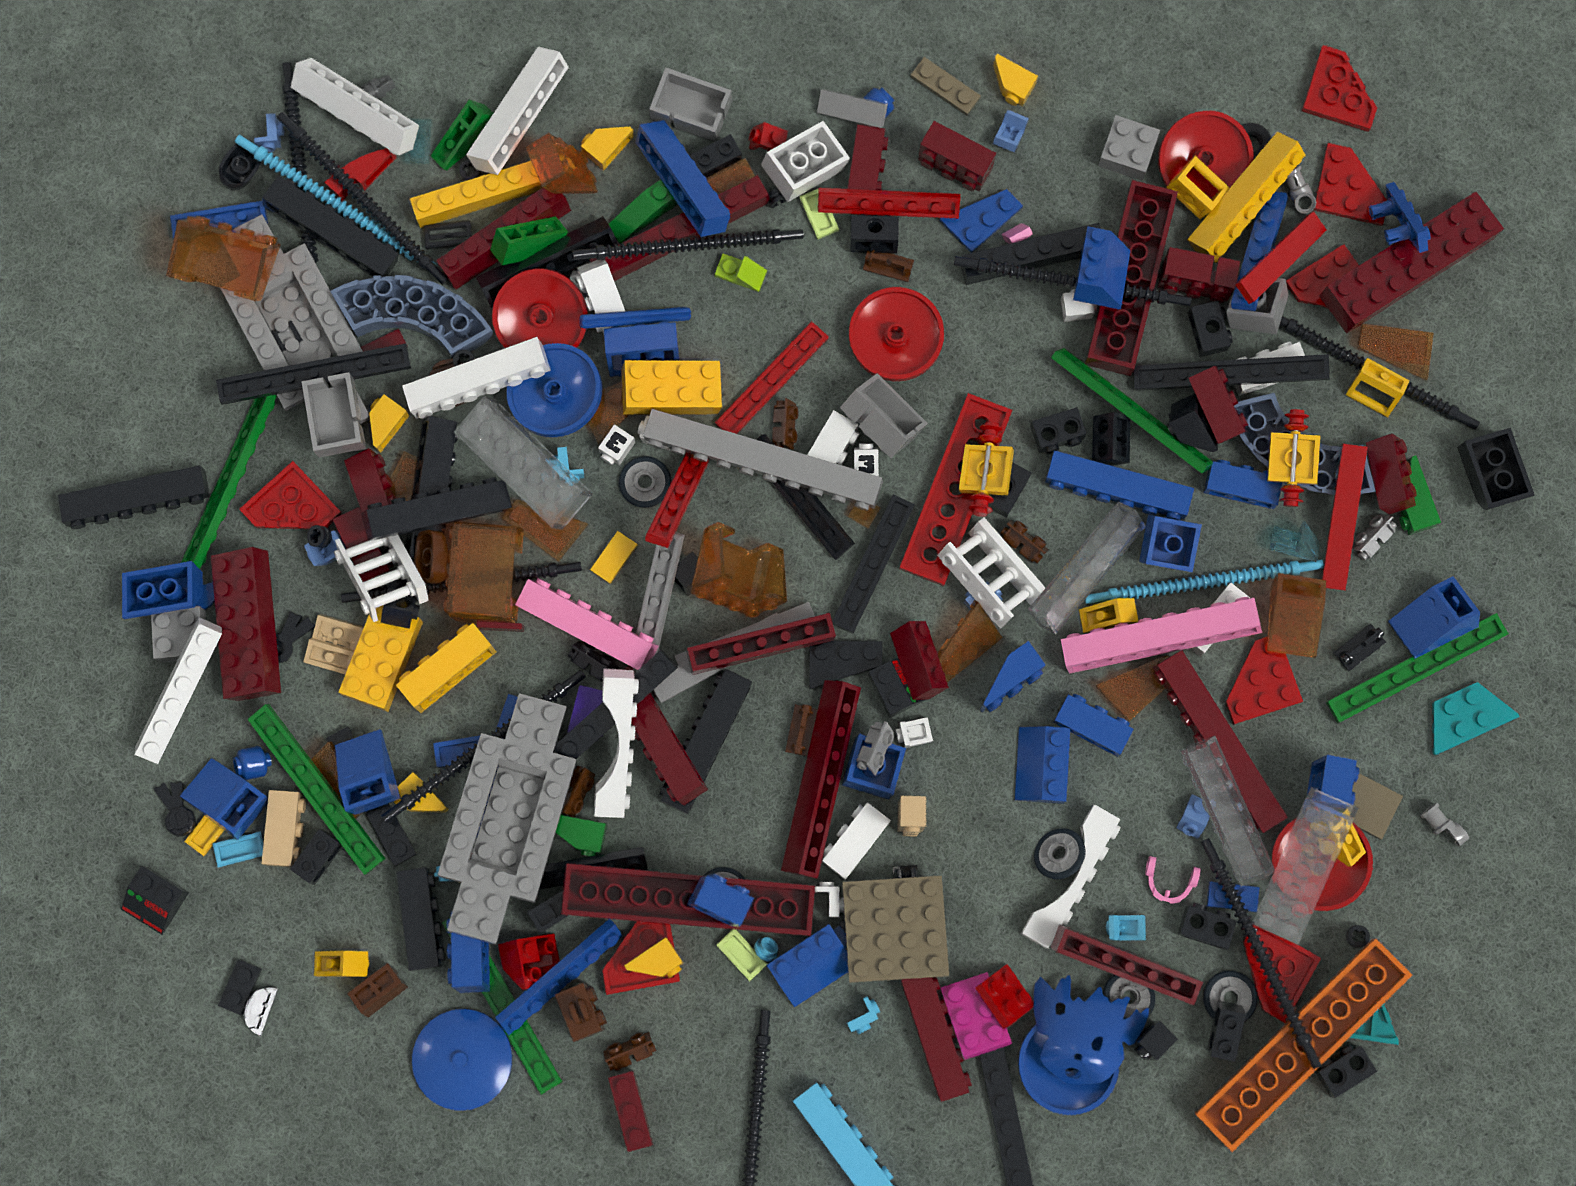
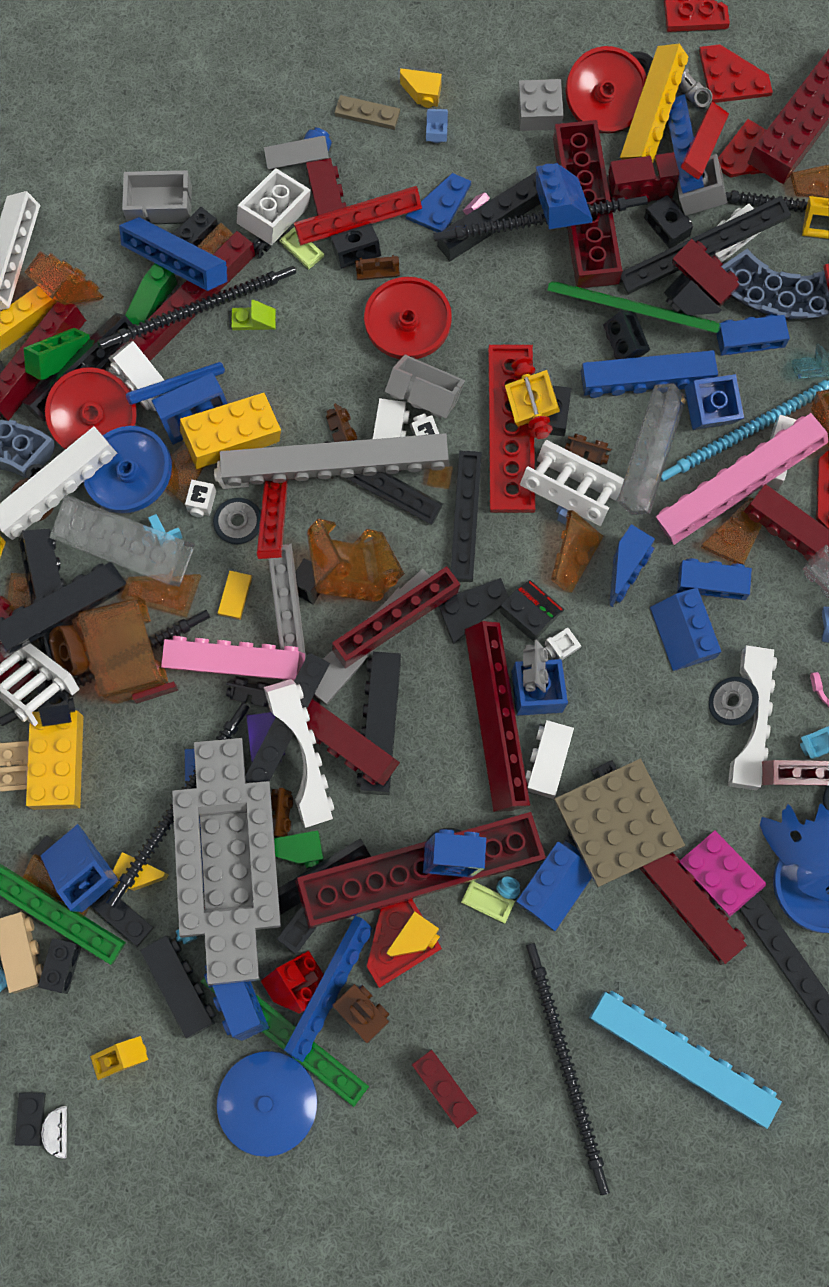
camera: 20 degrees left, 5 degrees down
(377, 990) = (162, 1069): reddish brown hinge -> none
(445, 668) = (118, 745): yellow brick -> none
(449, 750) = (148, 820): blue plate -> none
(606, 144) = (96, 255): yellow slope -> none
(618, 1054) = (411, 1038): reddish brown hinge -> none
(766, 136) = (229, 201): red bracket -> none
(772, 379) = (317, 392): red tile -> none
(801, 729) = (461, 681): reddish brown hinge -> none
(836, 903) = (554, 822): white bracket -> none
(862, 1023) = (623, 921): medium azure bracket -> none
(911, 815) = (591, 714): tan brick -> none
(919, 660) = (541, 579): dark red brick -> none
(956, 157) = (400, 158): dark red piece -> none
(1005, 996) = (741, 845): red plate -> none
(1055, 425) = (574, 345): black brick -> none
(1076, 310) = (551, 242): white brick -> none
(1108, 614) = (685, 481): yellow slope -> none
(1191, 195) = (608, 120): yellow tile -> none
(1293, 458) = (787, 293): yellow plate -> none
(1411, 223) = (792, 73): blue plate -> none

